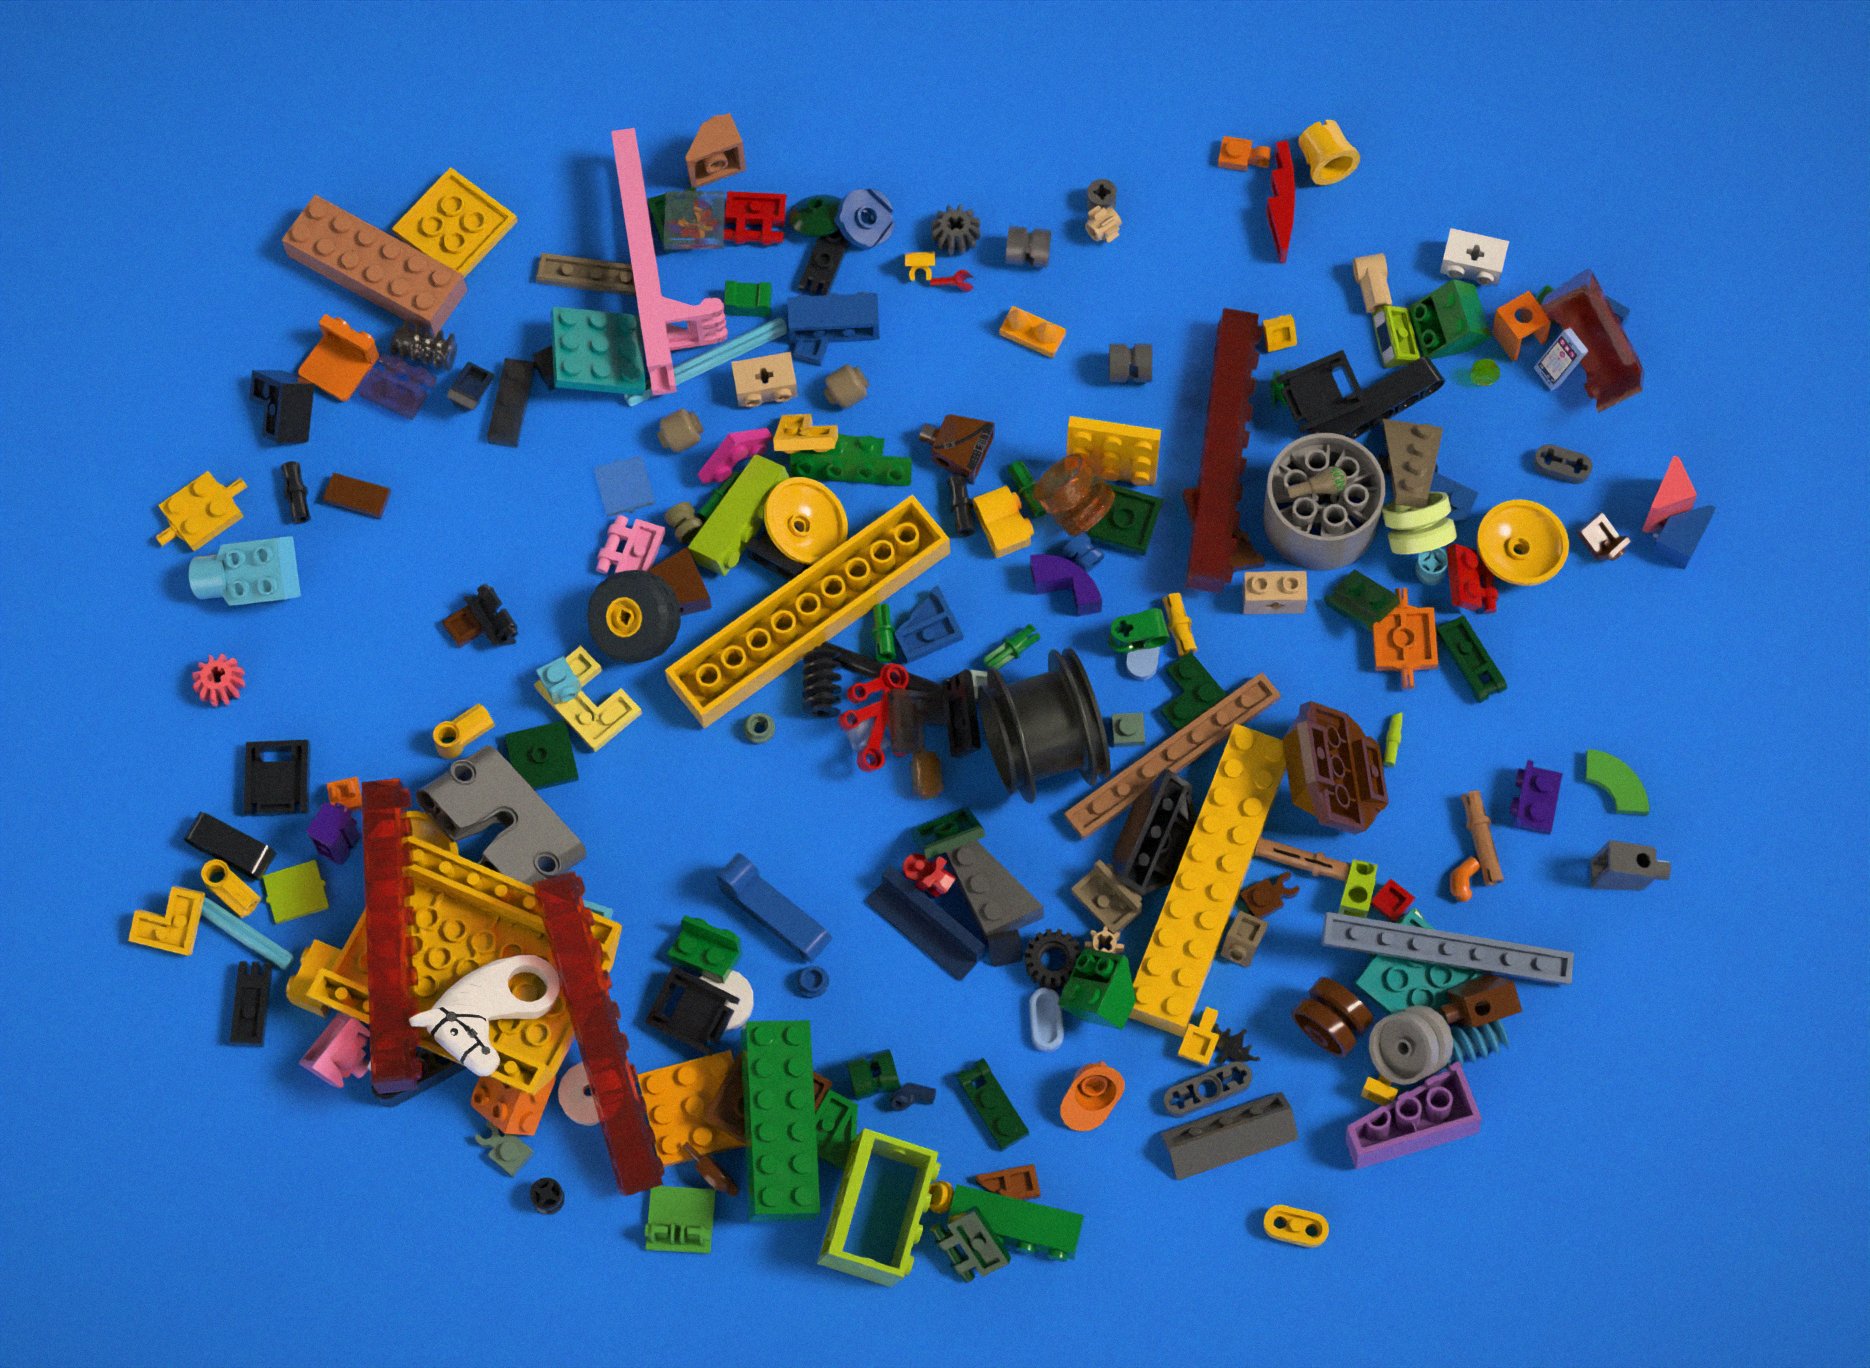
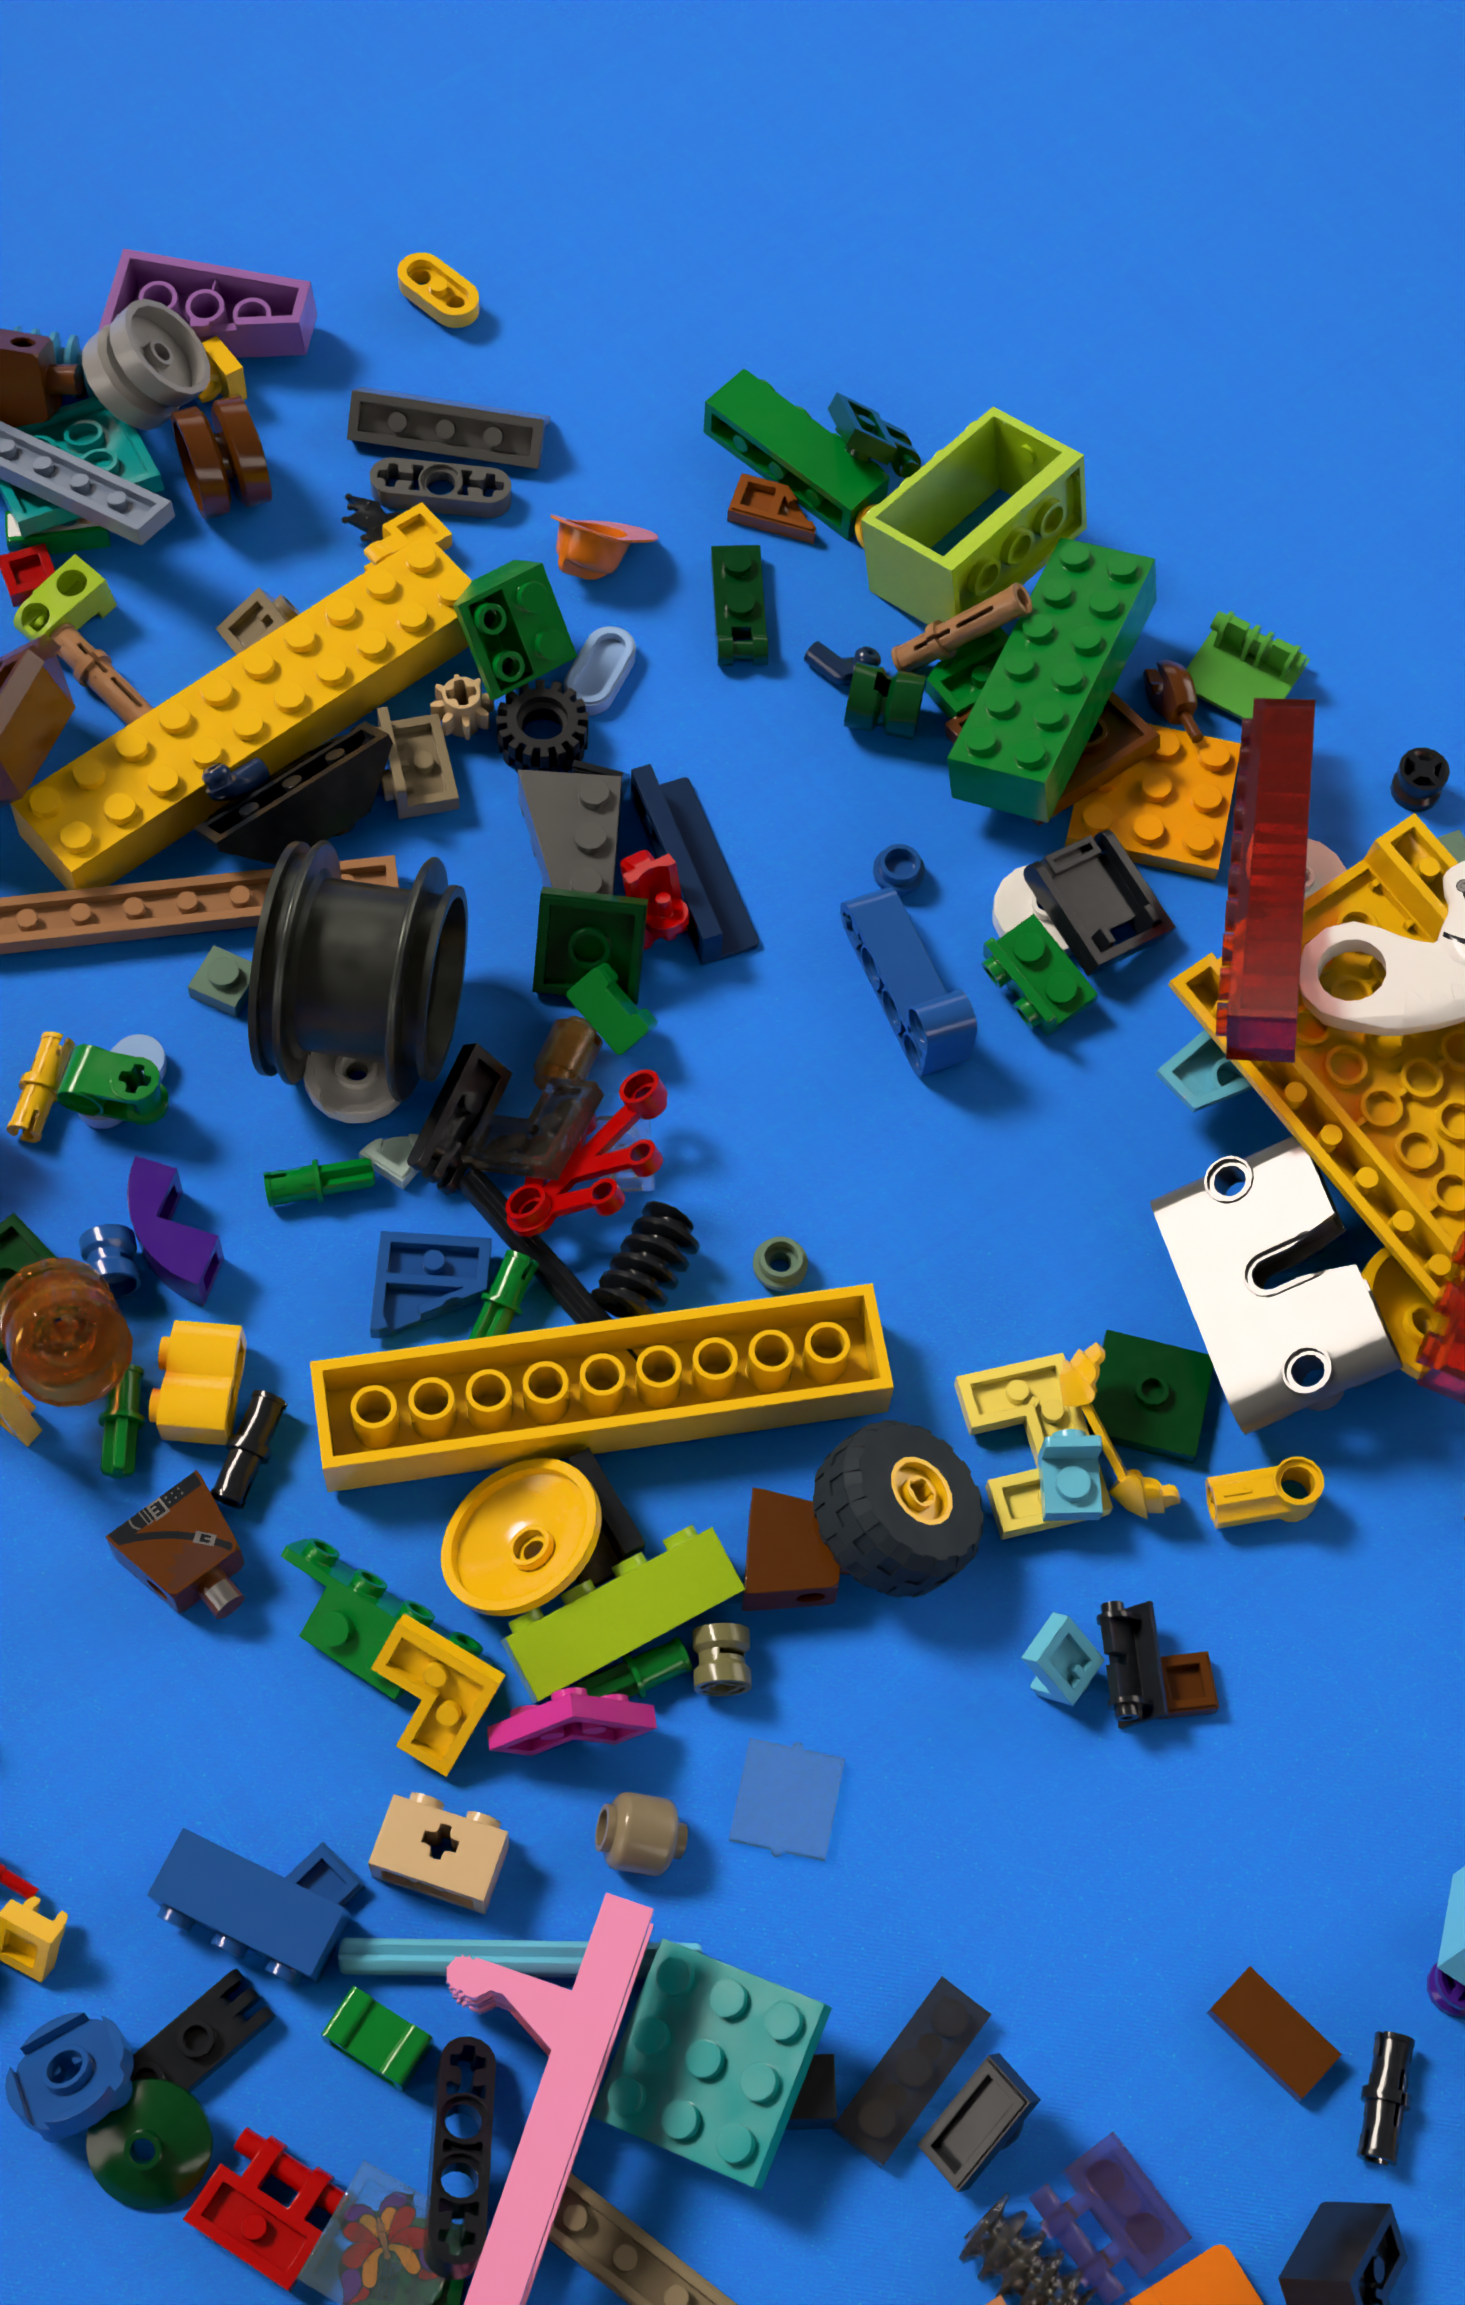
camera: 160 degrees left, 5 degrees down
(524, 594) = (1061, 1660): none -> medium azure bracket
(529, 703) = (1131, 1489): none -> yellow piece
(639, 551) = (823, 1652): bright pink plate -> none
(682, 266) = (461, 2155): none -> black beam
(846, 386) = (307, 1760): dark tan head -> none
(848, 1128) = (944, 638): none -> medium nougat pin
(916, 806) = (610, 1009): none -> green piece
(1189, 813) = (234, 785): none -> dark blue arm
(1198, 691) = (89, 971): dark green plate -> none
(1265, 898) = (182, 669): reddish brown plate -> none

